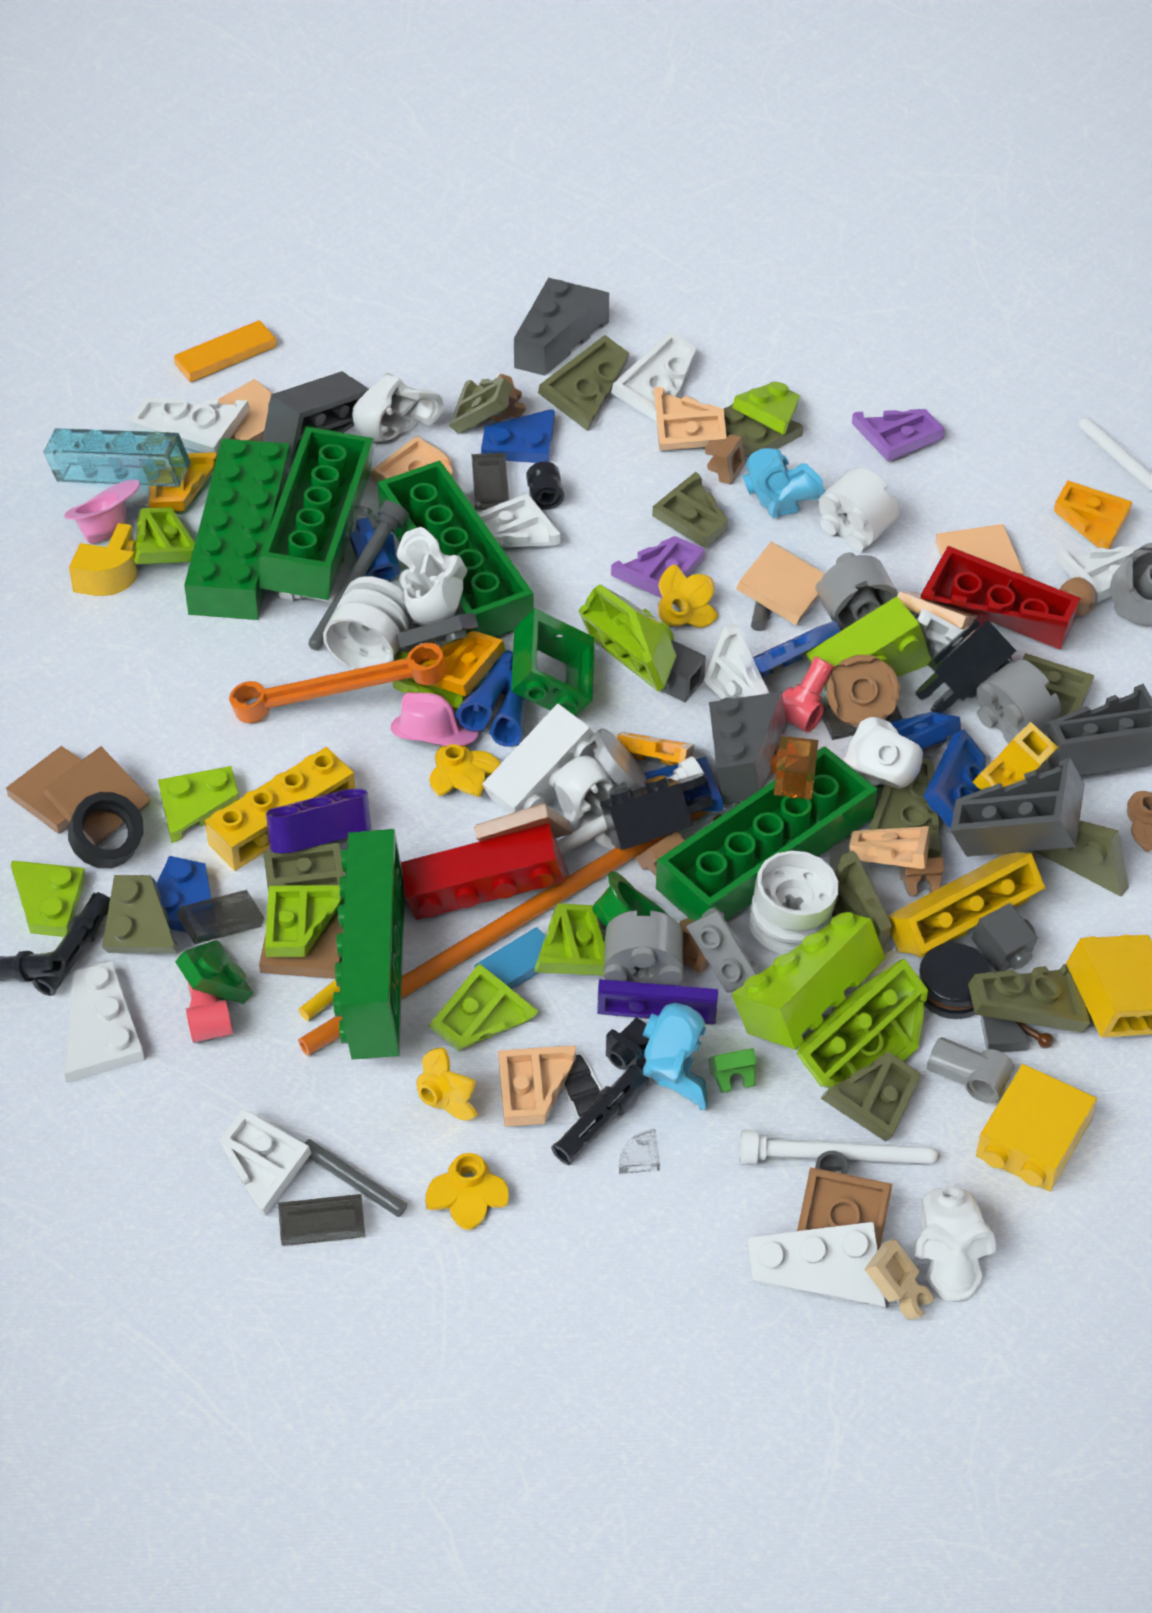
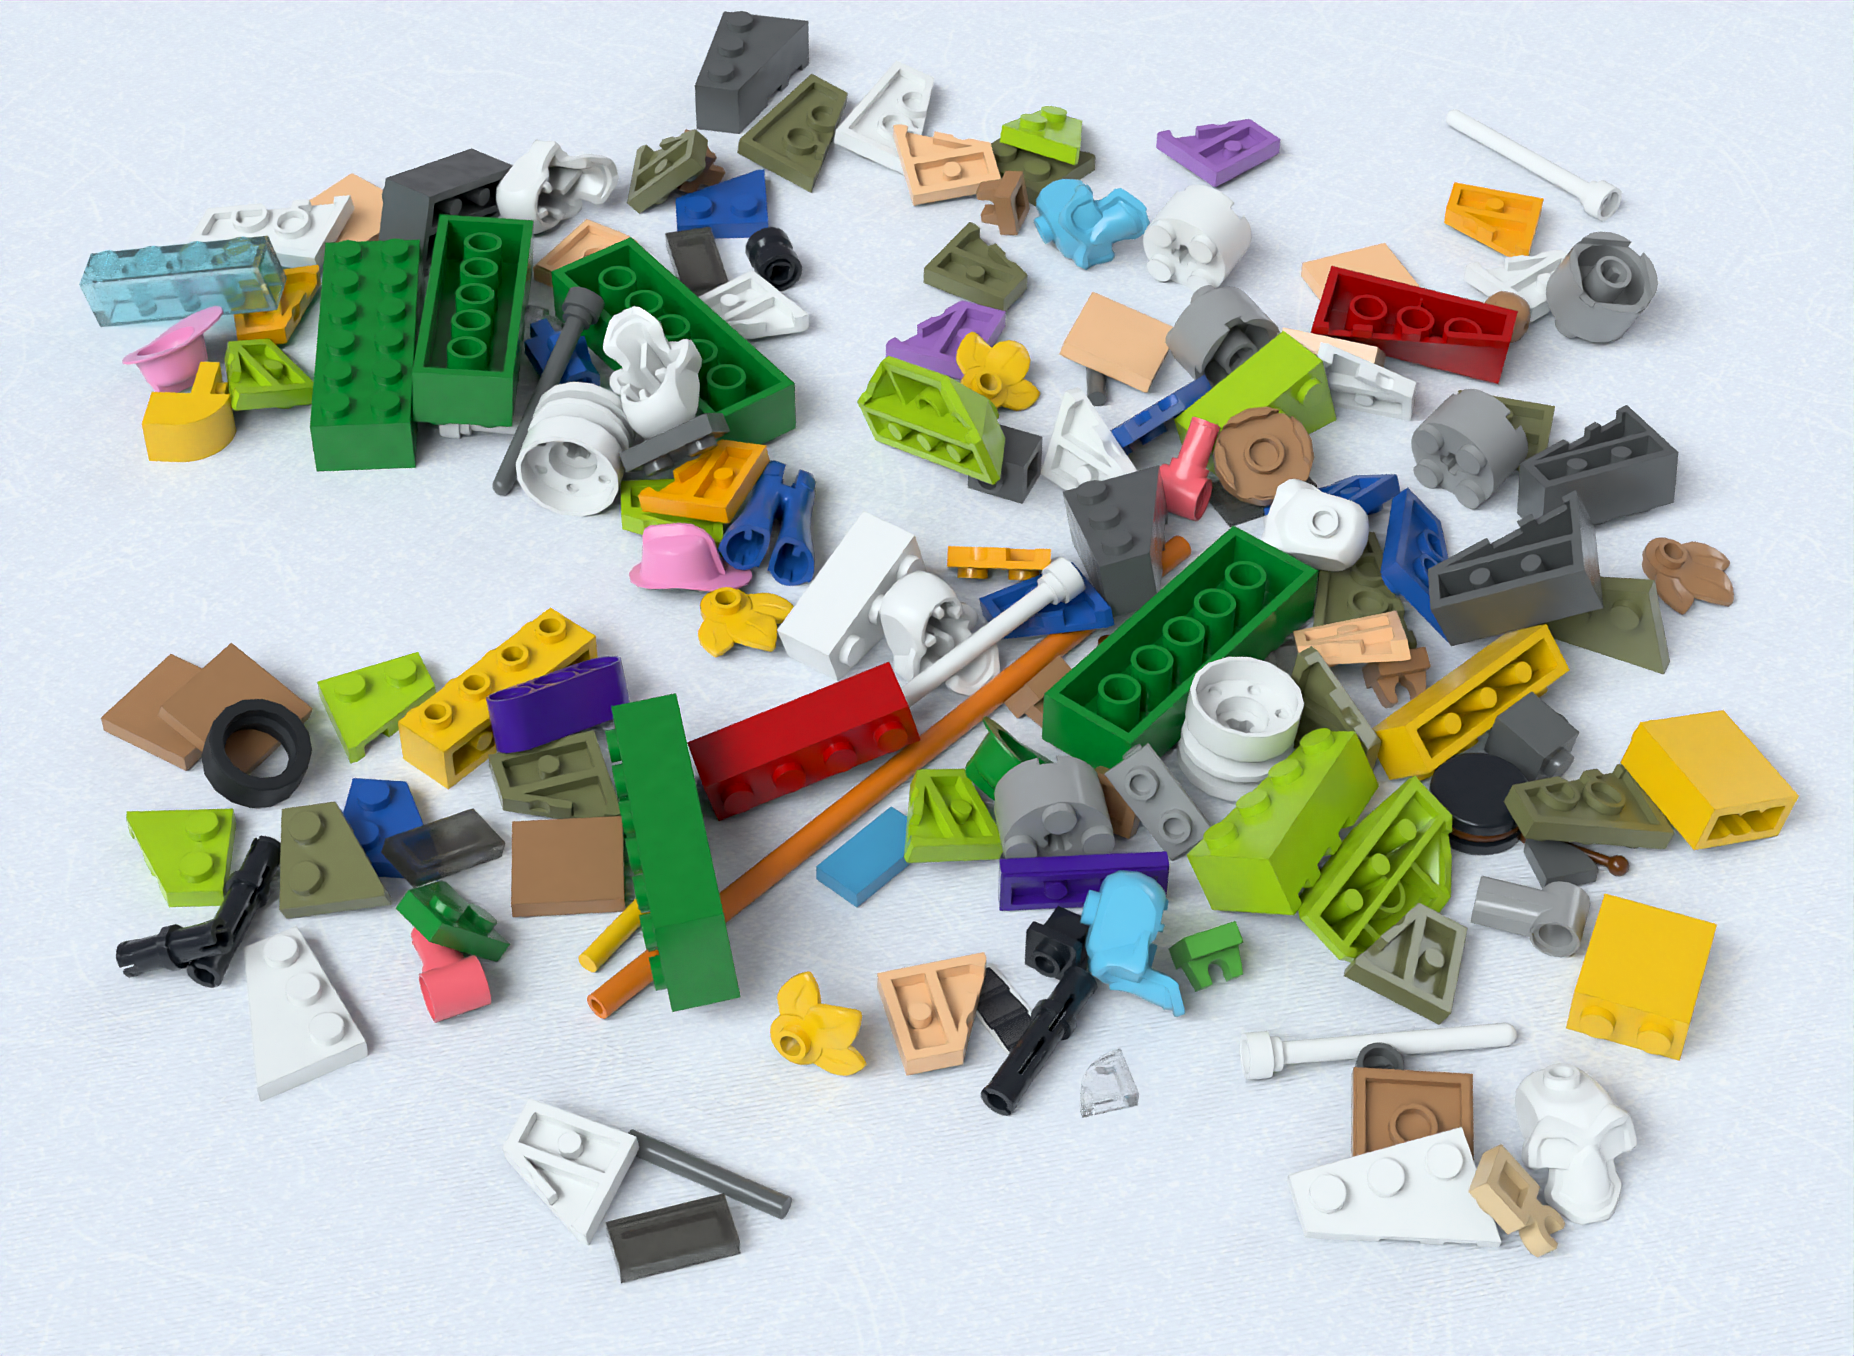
camera: 10 degrees left, 5 degrees down
(225, 351) = (303, 145): light orange tile -> none
(298, 917) = (557, 832): lime wing -> none
(338, 683) = (548, 527): orange piece -> none
(467, 1196) = (876, 1176): yellow plate -> none
(480, 1010) = (840, 924): lime wing -> none
(522, 820) = (847, 663): tile -> none
(574, 649) = (863, 451): green window -> none
(617, 760) = (960, 577): light grey tile -> none
(652, 810) = (1020, 633): black hinge -> none
(796, 767) = (1207, 552): clear orange brick -> none
(966, 663) = (1392, 405): black hinge -> none
(1022, 755) = (1492, 512): yellow brick -> none

